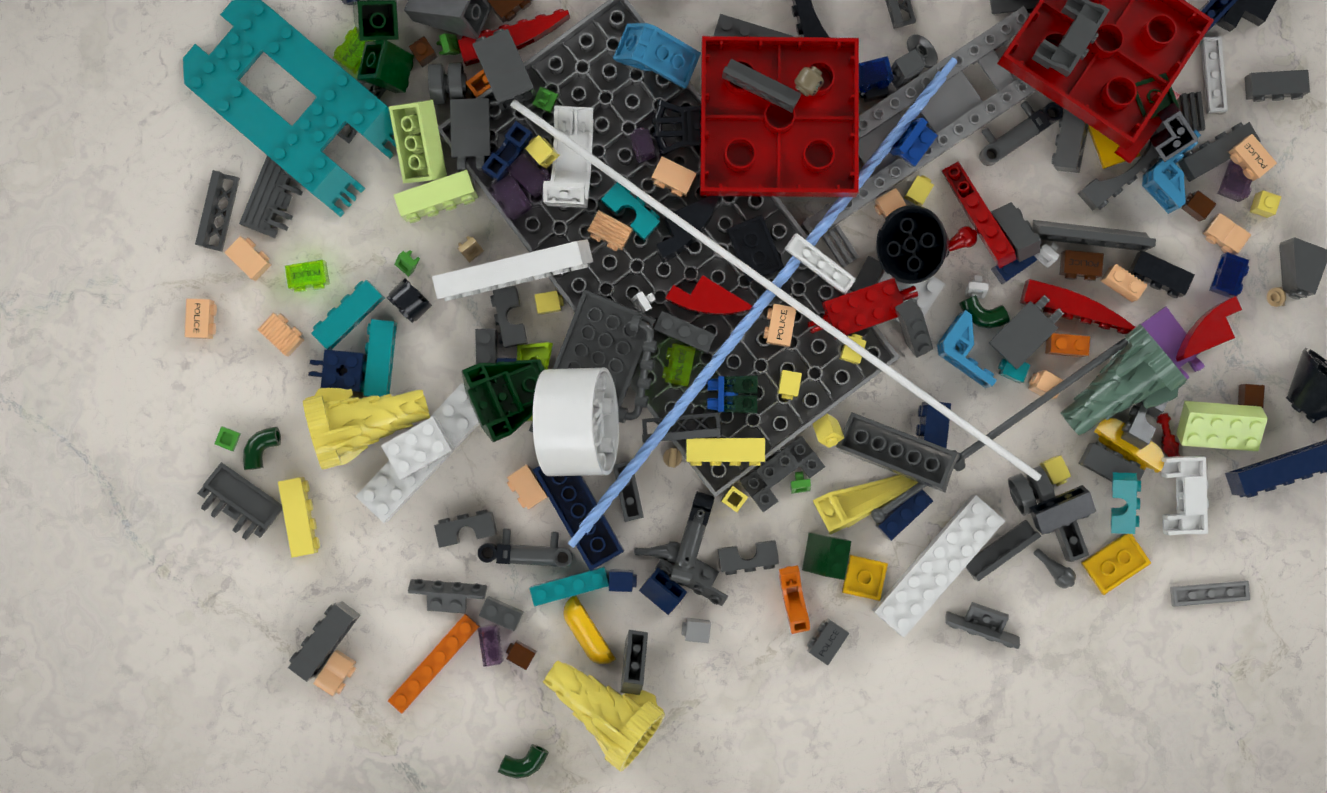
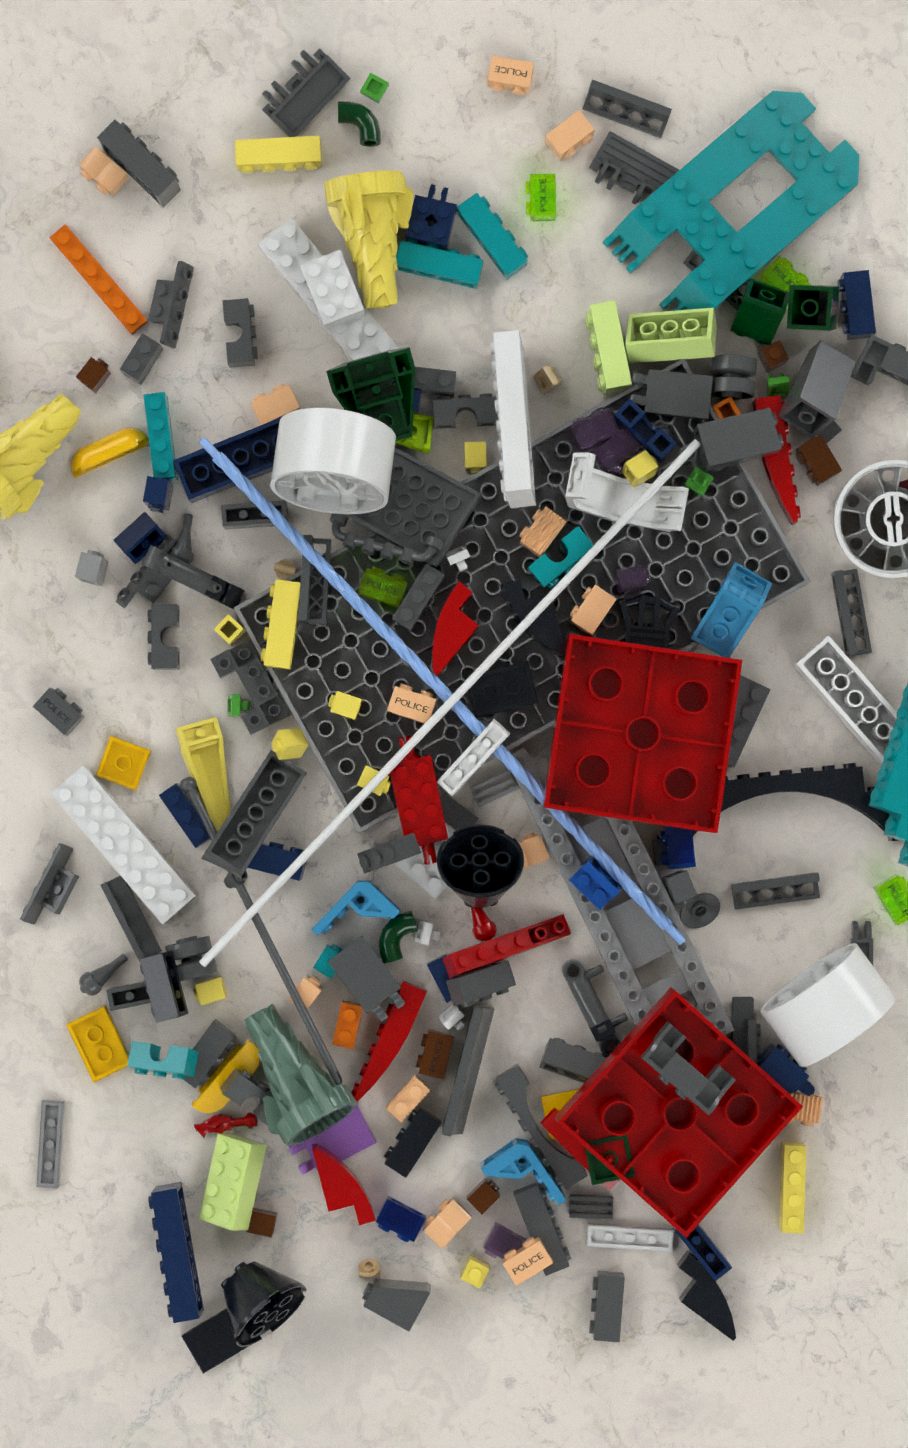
camera: 100 degrees right, 0 degrees up
(281, 334) = (481, 160): light nougat brick -> none
(406, 263) = (541, 306): bright green tile -> none
(409, 300) = (498, 303): black brick -> none
(490, 645) = (108, 342): clear purple brick -> none
(526, 555) = (206, 376): dark grey piece -> none
(634, 662) = (66, 494): dark grey brick -> none
(728, 390) = (342, 636): clear green hips -> none
(761, 85) = (677, 716): dark grey fence -> none
(794, 599) = (109, 680): orange arch -> none
(809, 81) = (674, 769): dark tan head -> none
(826, 556) = (152, 722): dark green slope -> none
(919, 190) = (543, 884): light yellow brick -> none
(1176, 135) = (562, 1174): black brick -> none
(1190, 495) = (161, 1137): white bracket -> none

